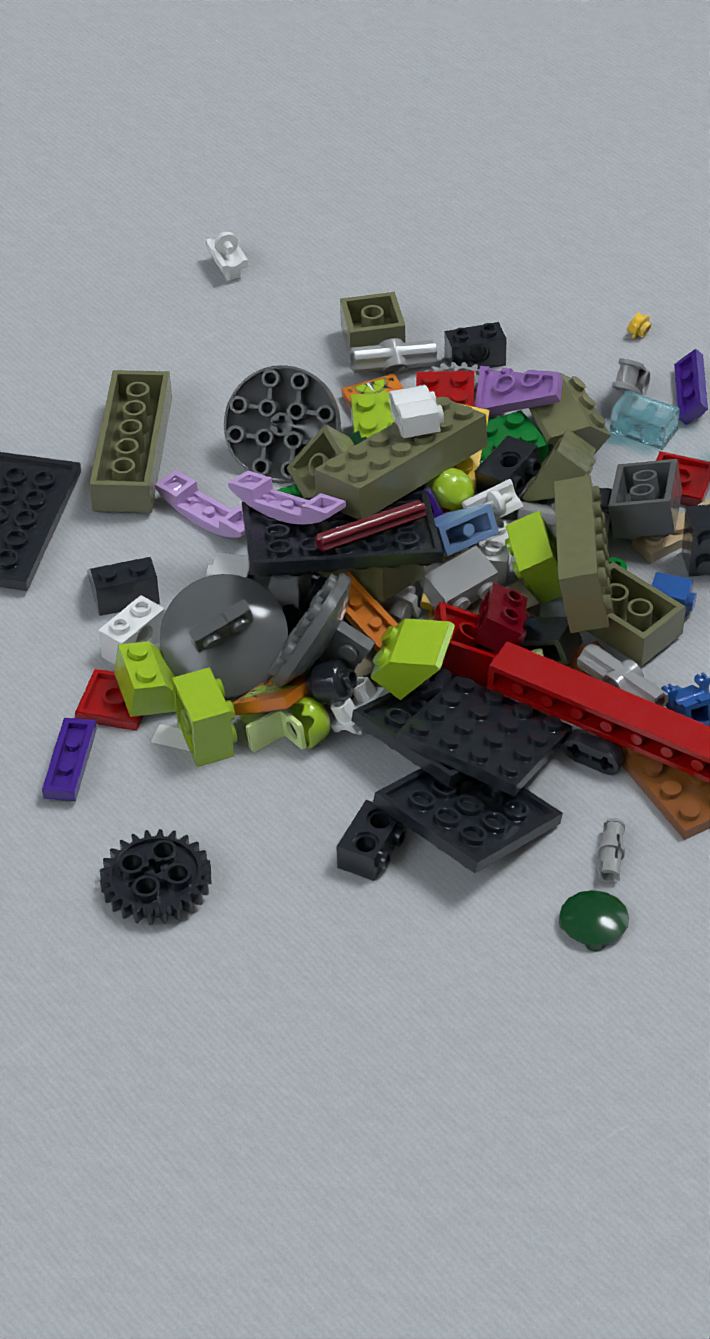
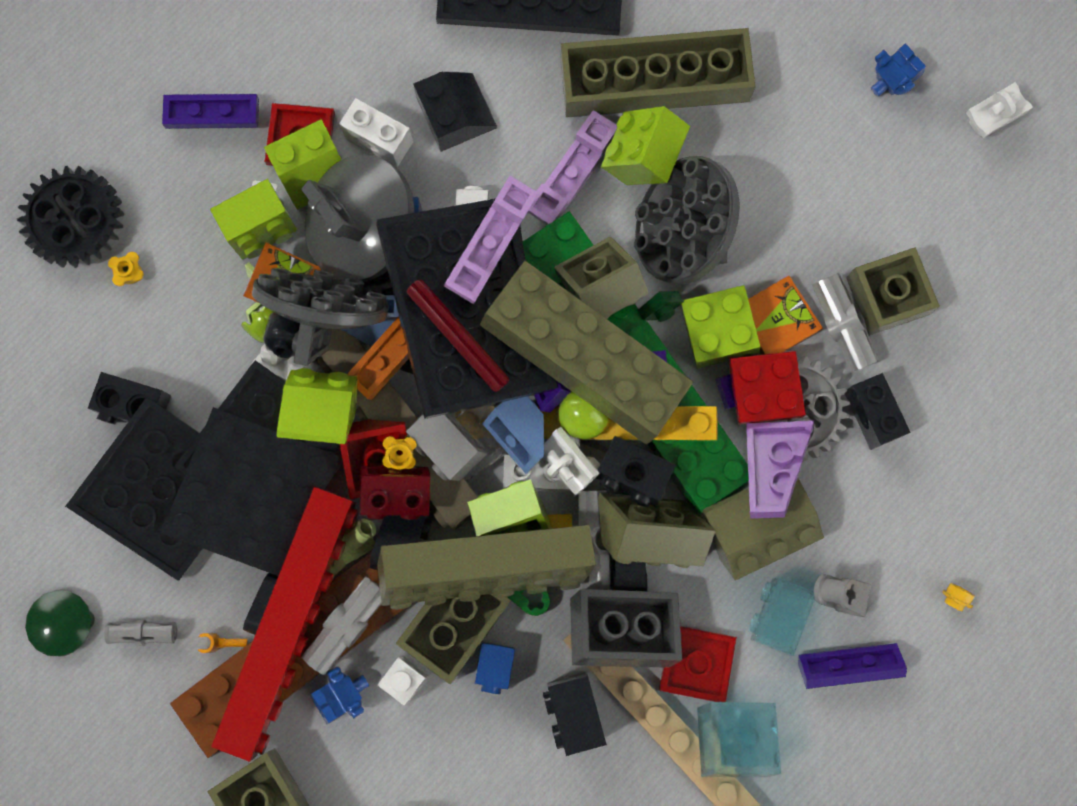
camera: 80 degrees right, 35 degrees up
(174, 304) = (897, 72): none -> blue piece
(204, 446) = (645, 146): none -> lime brick
(224, 840) = (134, 271): none -> yellow plate
(415, 411) = (622, 355): white brick -> none
(466, 606) = (396, 461): none -> yellow plate
(628, 793) = (217, 642): none -> light orange hand
(678, 656) = (402, 680): none -> white brick

